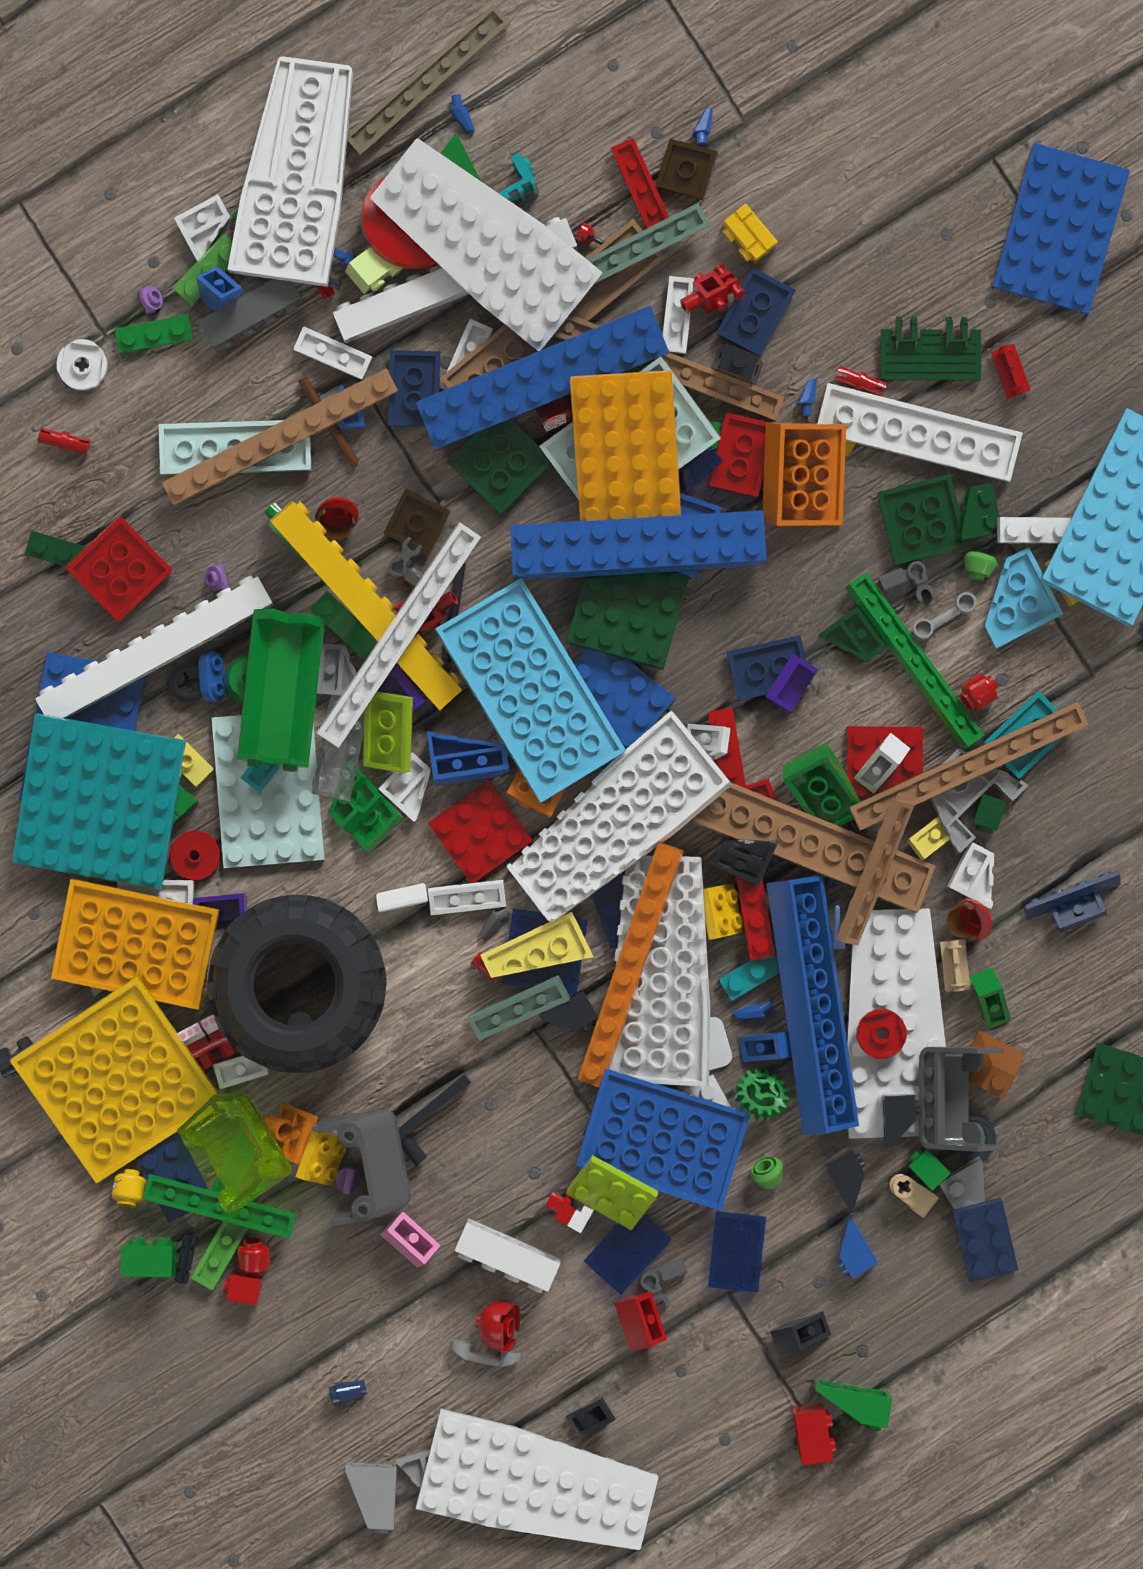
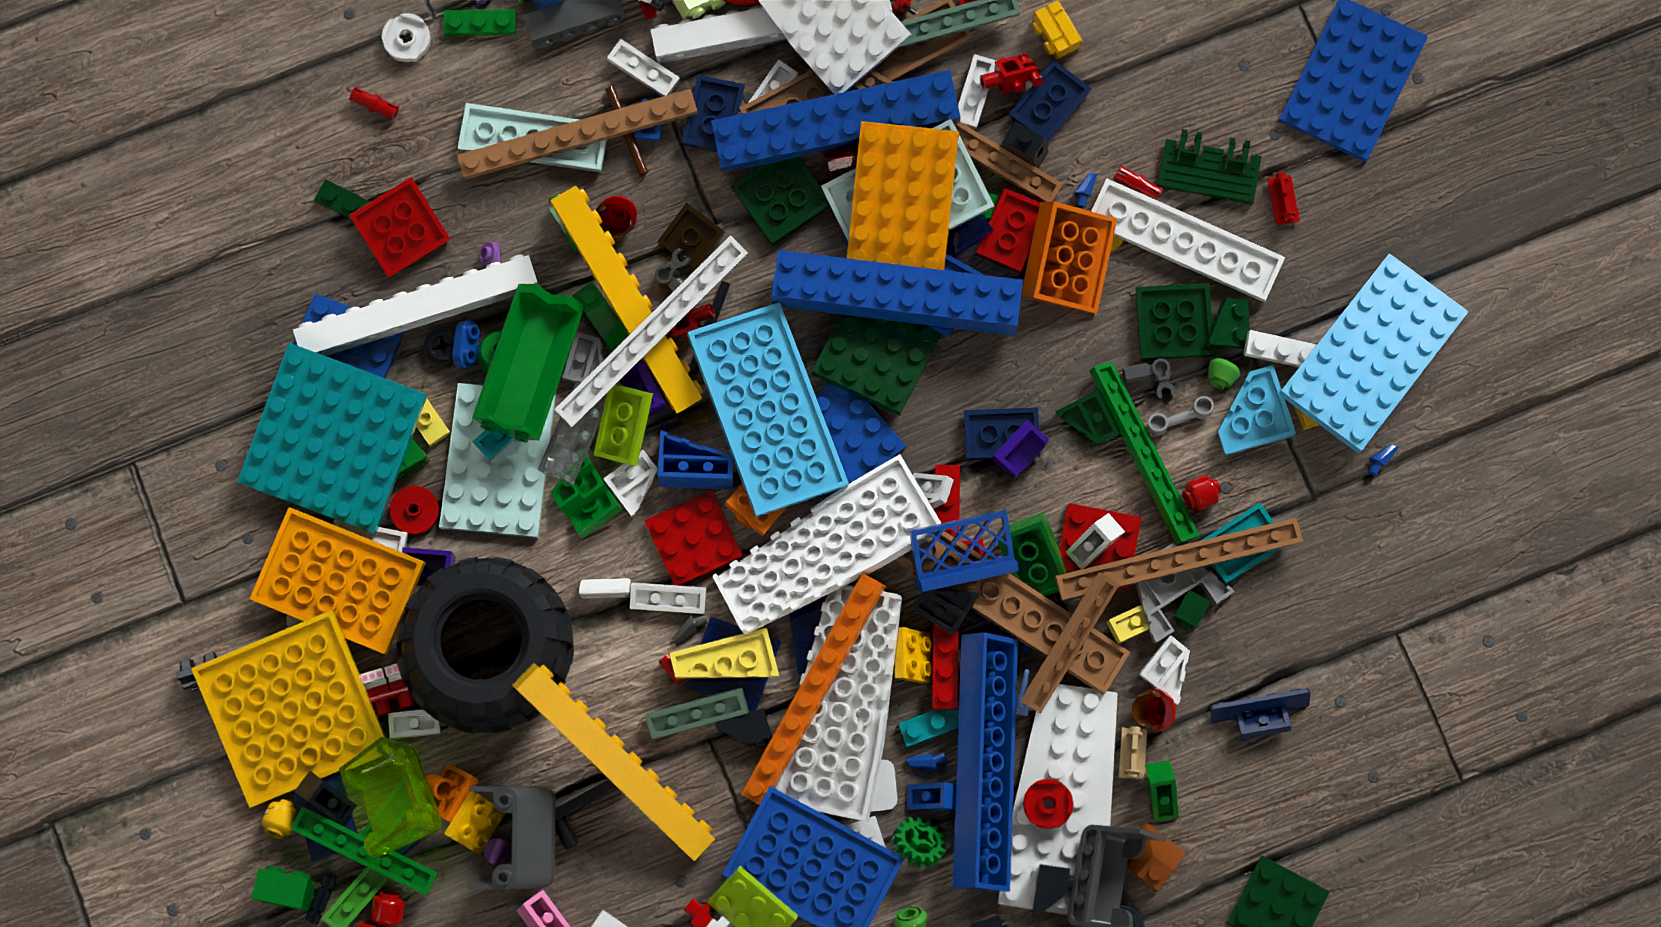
camera: 15 degrees right, 10 degrees down
(170, 1161) = (325, 798): none -> black slope
(448, 1077) = (613, 761): none -> yellow brick
(764, 820) = (962, 572): none -> blue fence

